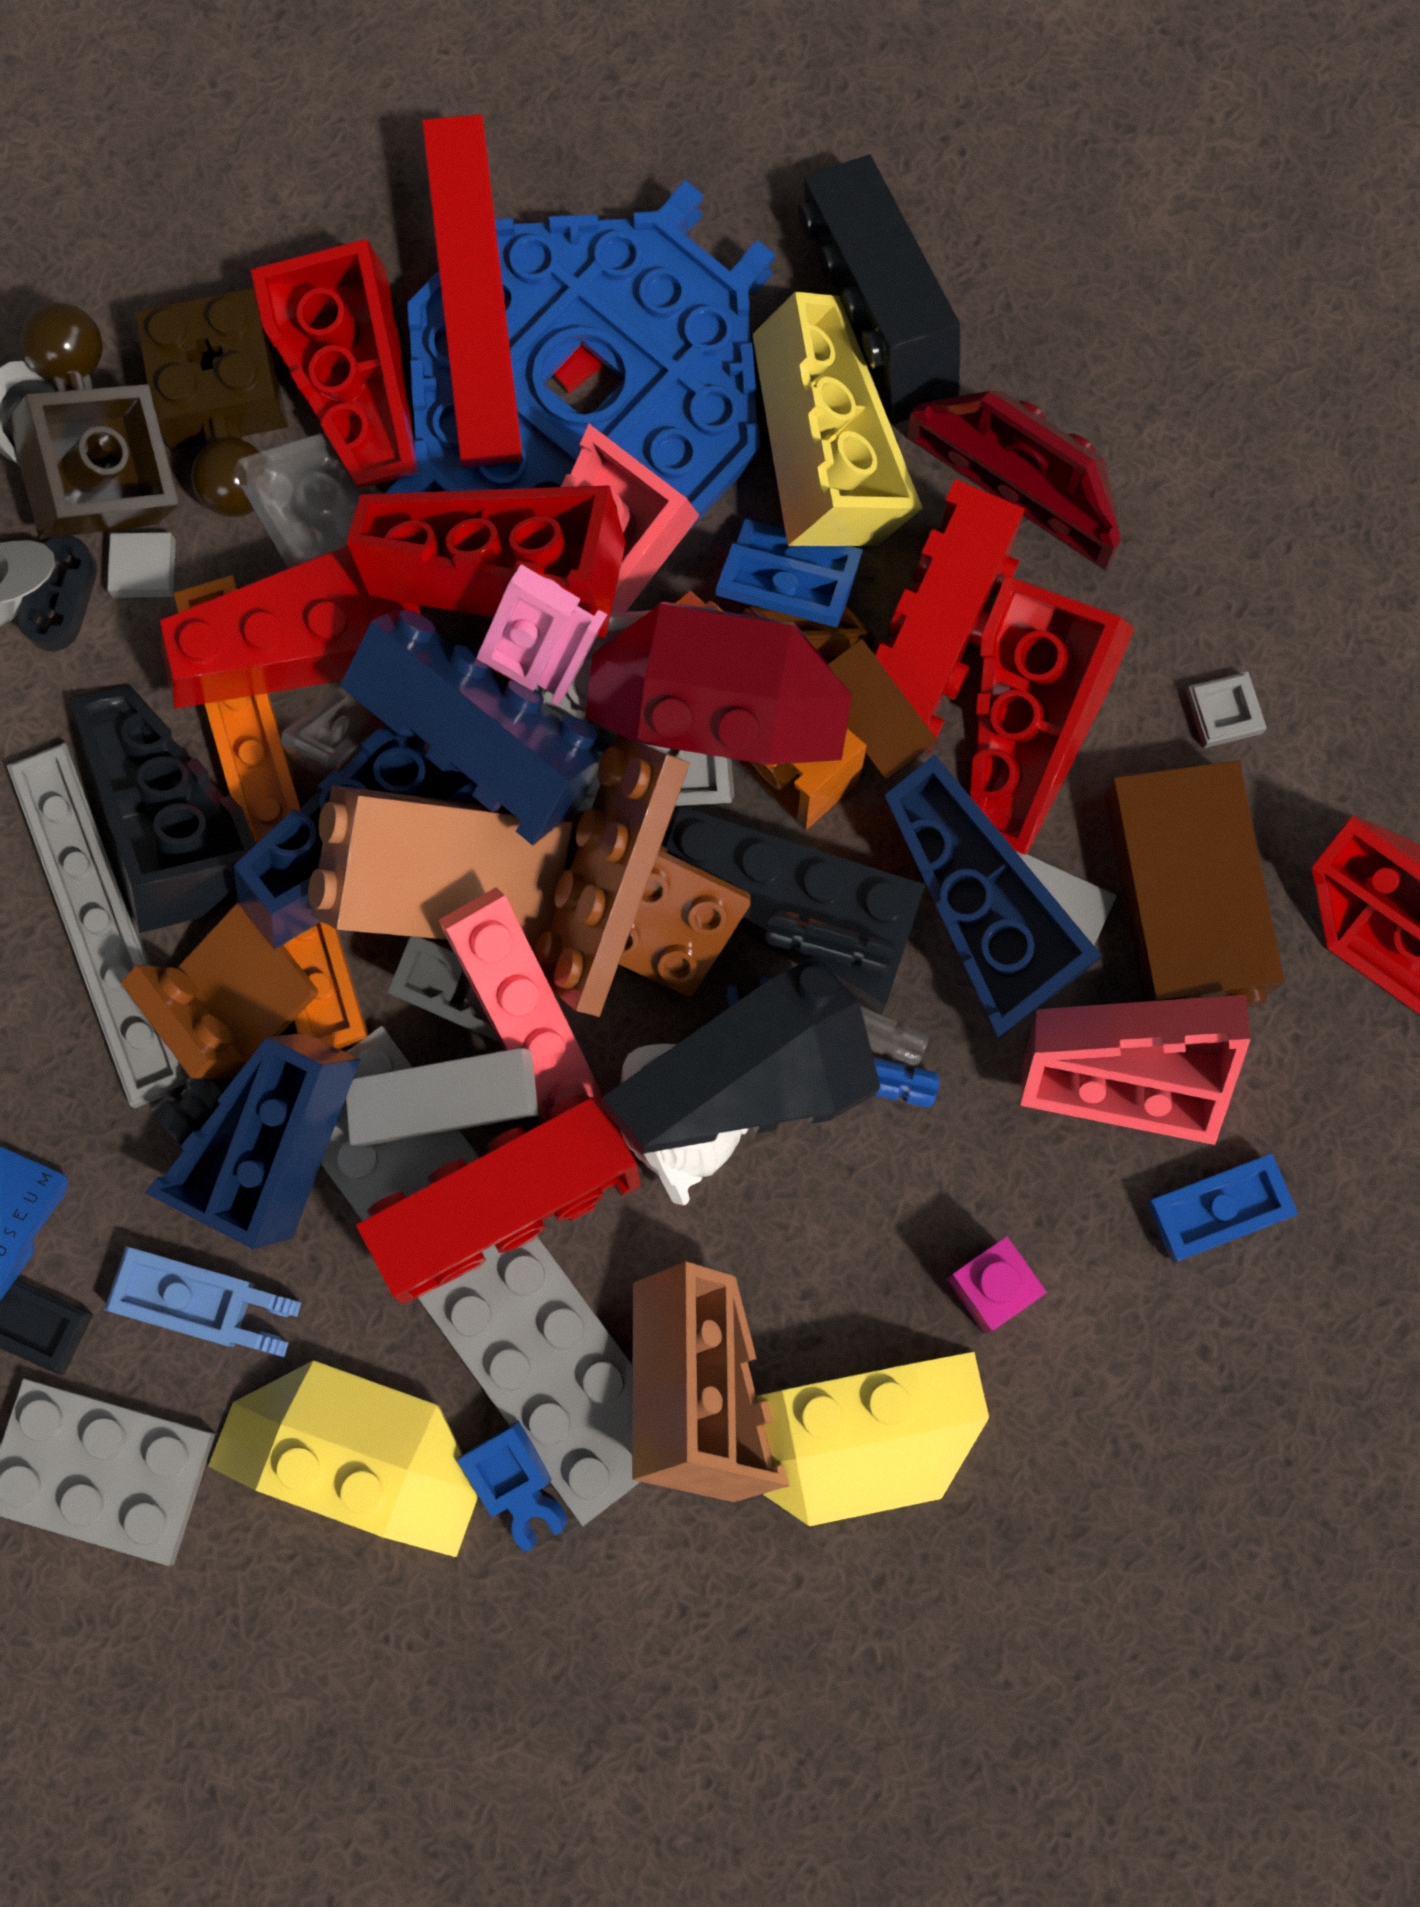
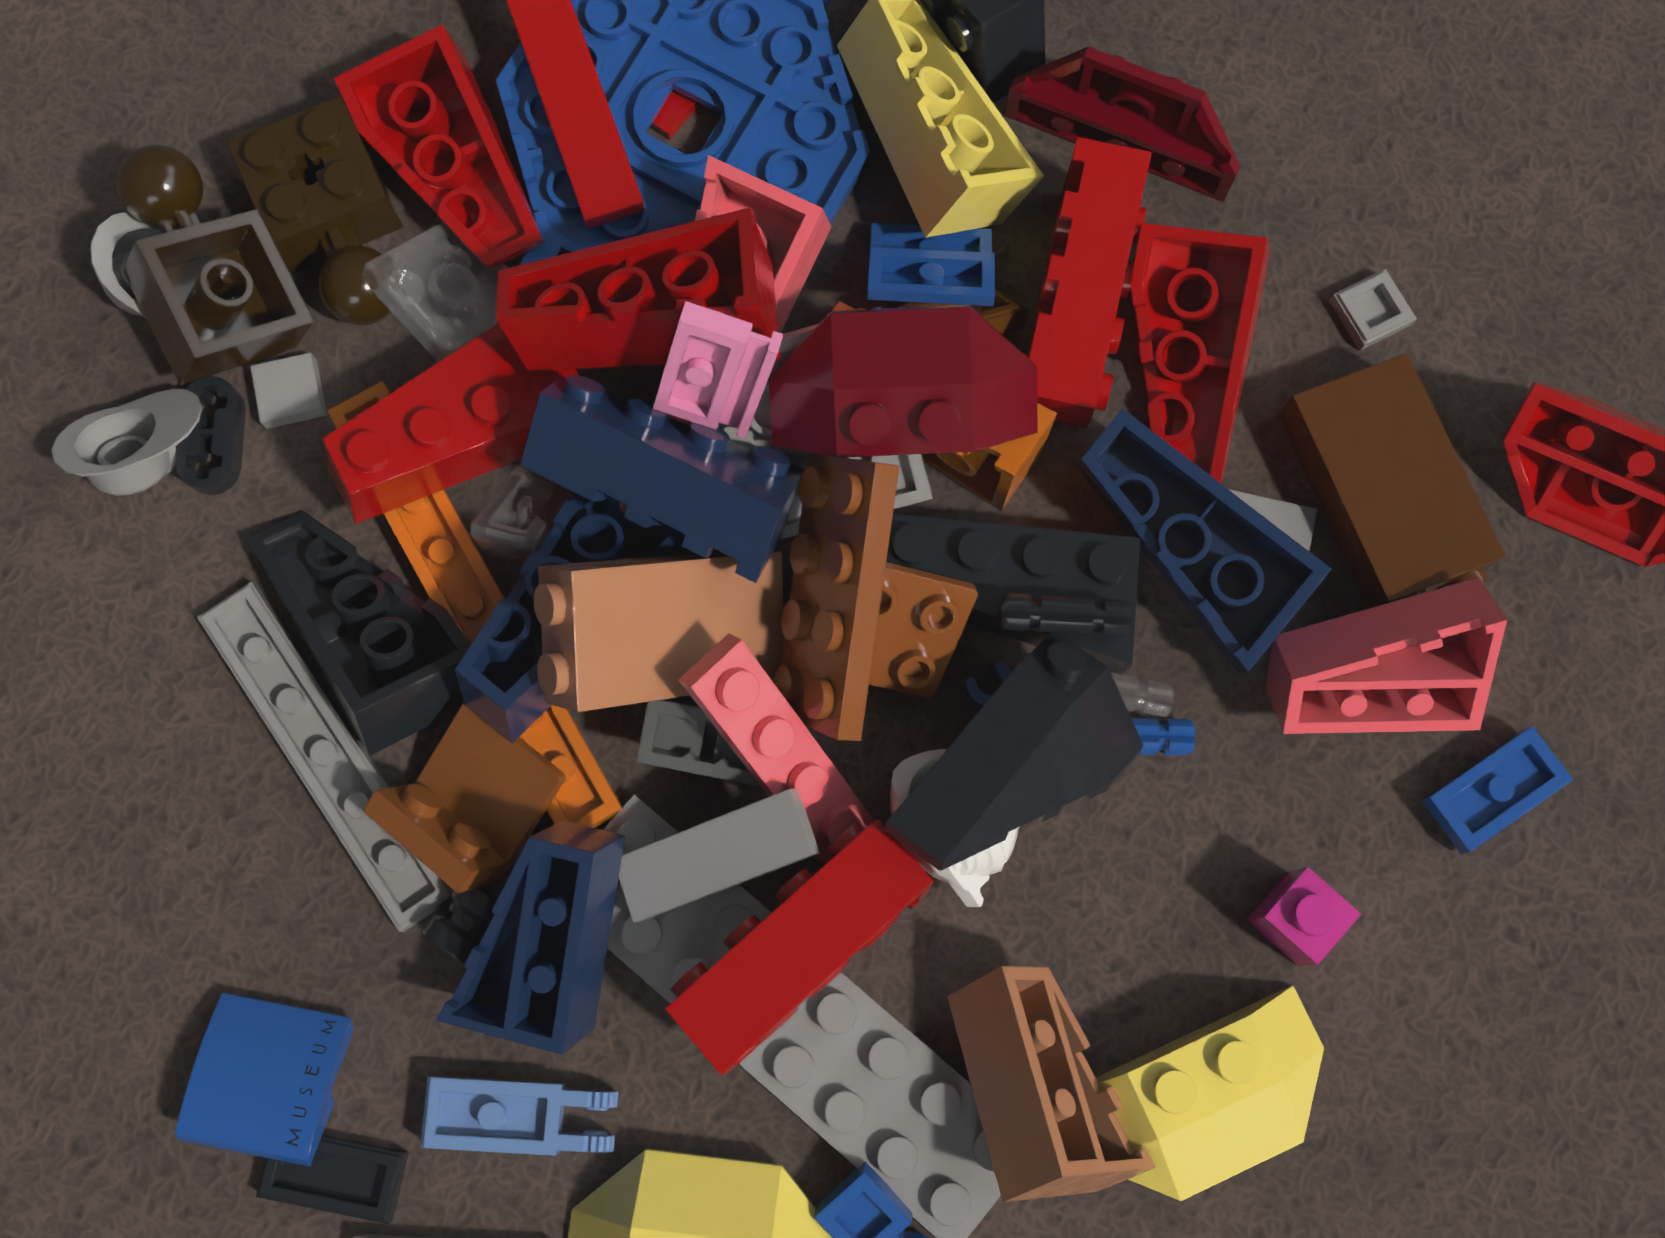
camera: 15 degrees left, 0 degrees up
(881, 712) = (1062, 379): reddish brown tile -> none

